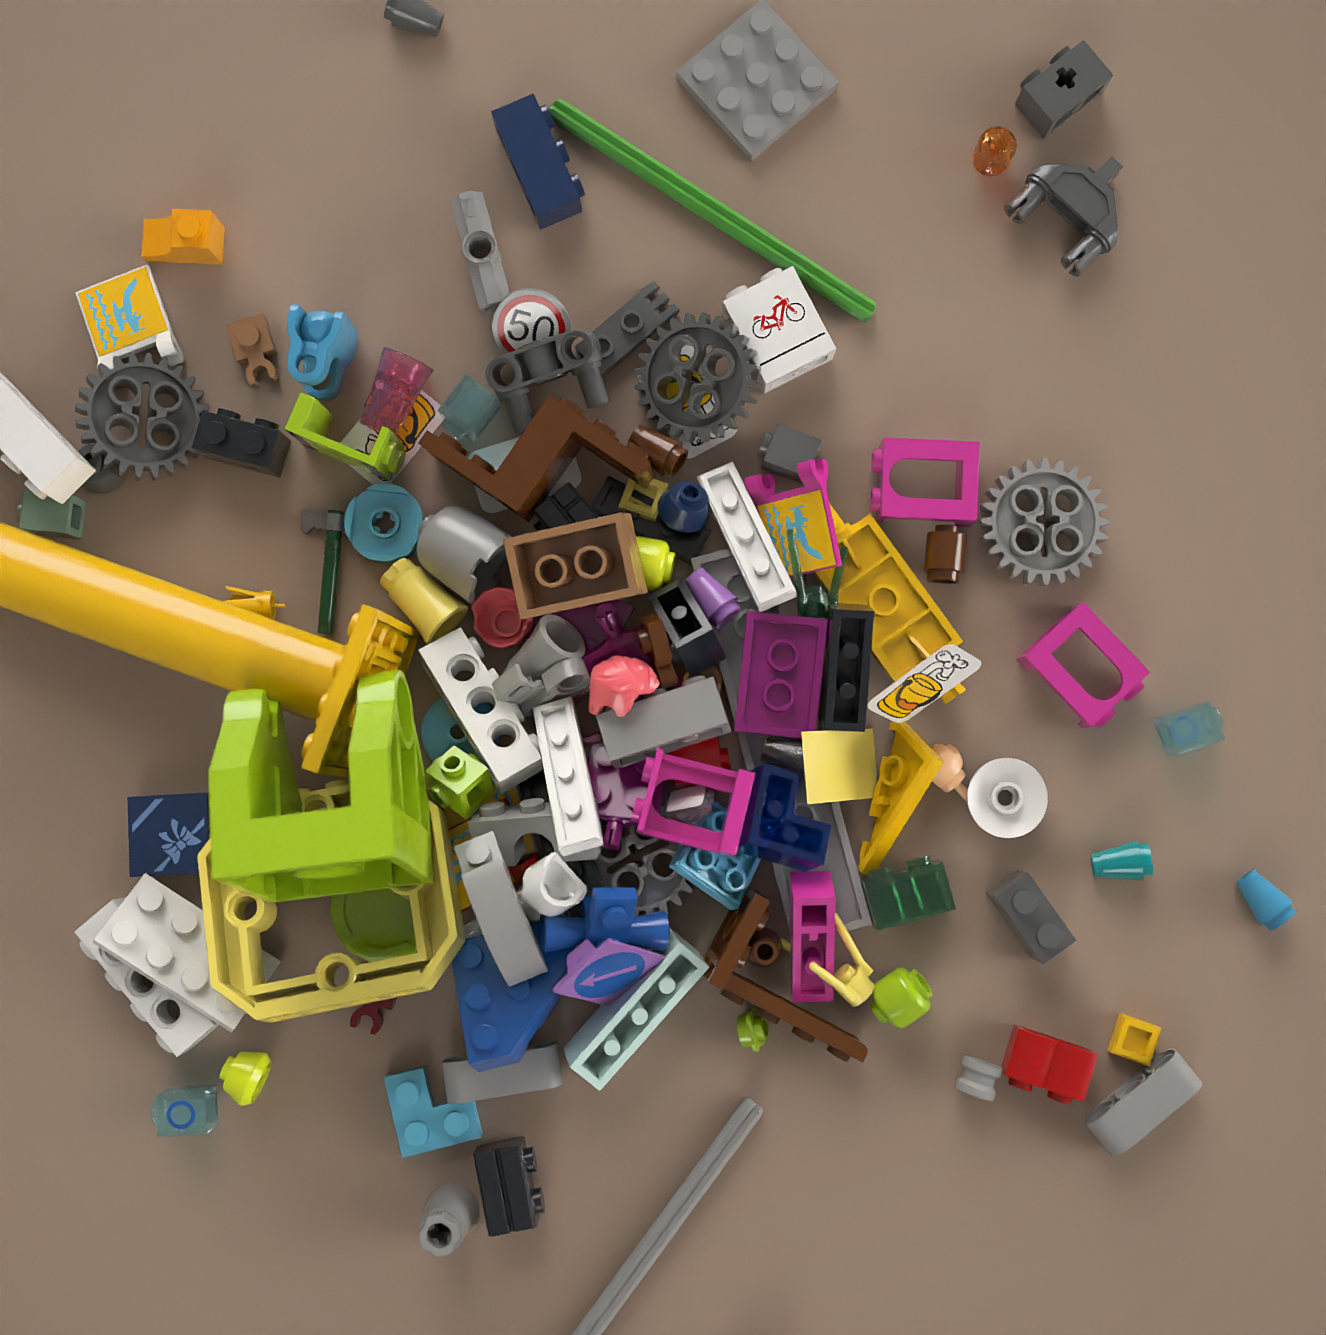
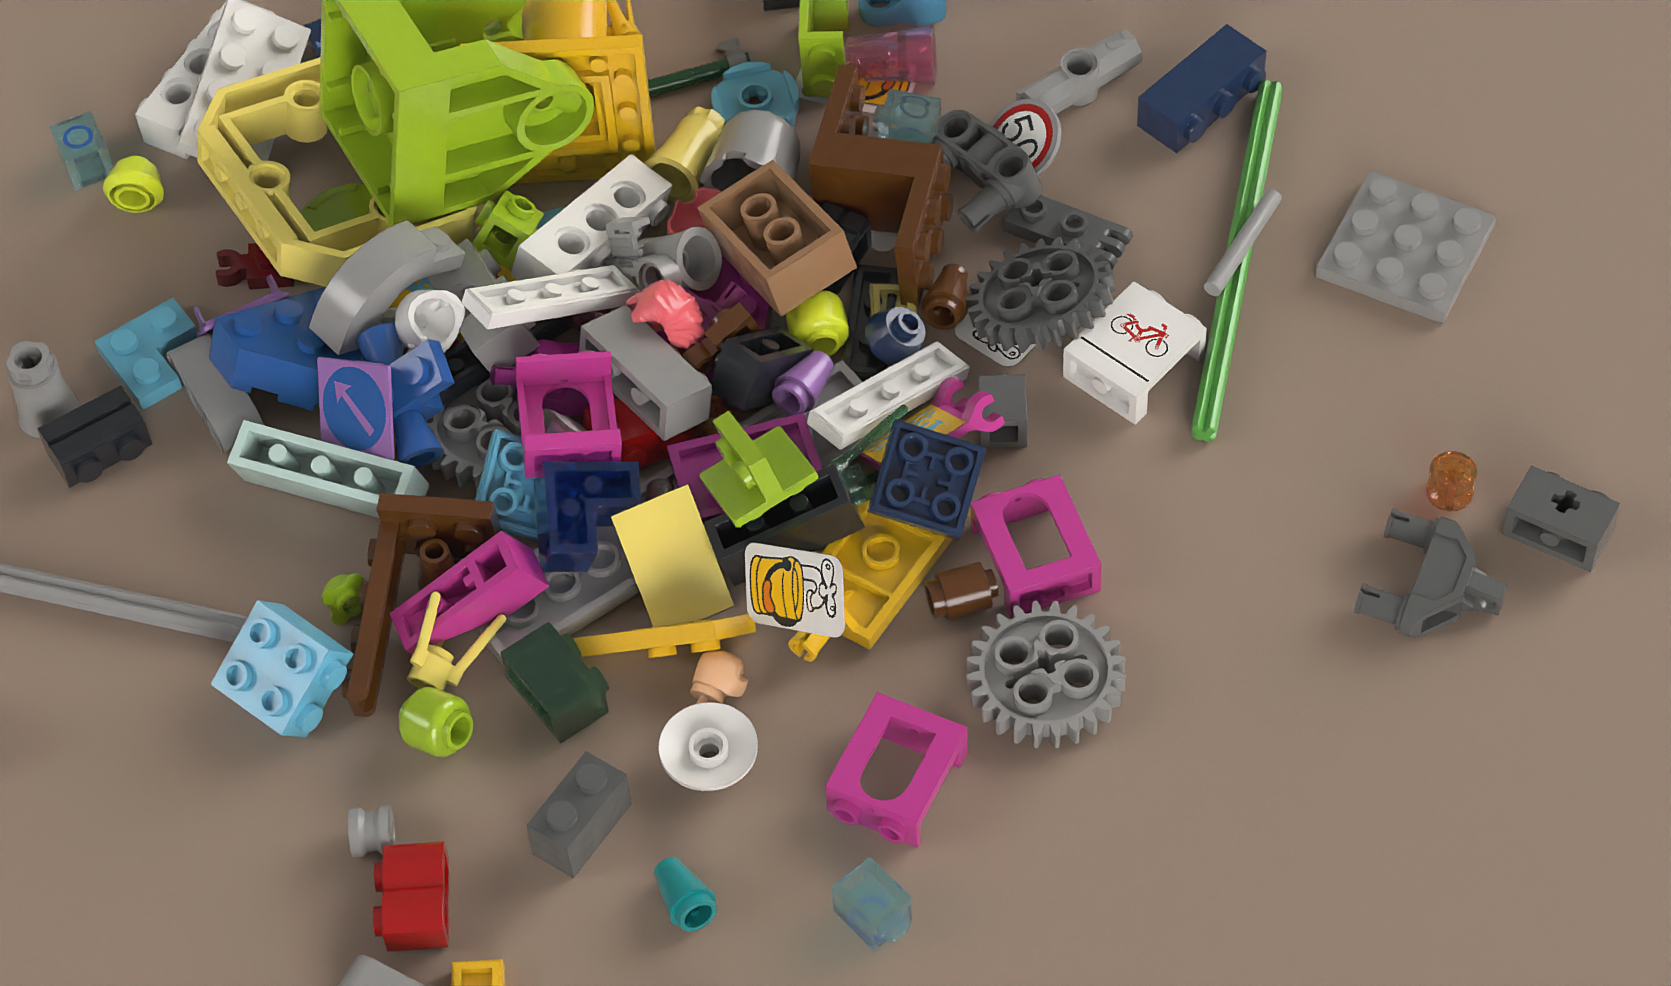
camera: 65 degrees right, 30 degrees down
(439, 1030) = (208, 326): none -> medium lavender piece
(713, 200) = (1242, 242): none -> light grey bar
(813, 673) = (754, 472): none -> lime bracket
(817, 1104) = (282, 669): none -> medium azure brick
(856, 541) = (926, 479): none -> dark blue tile

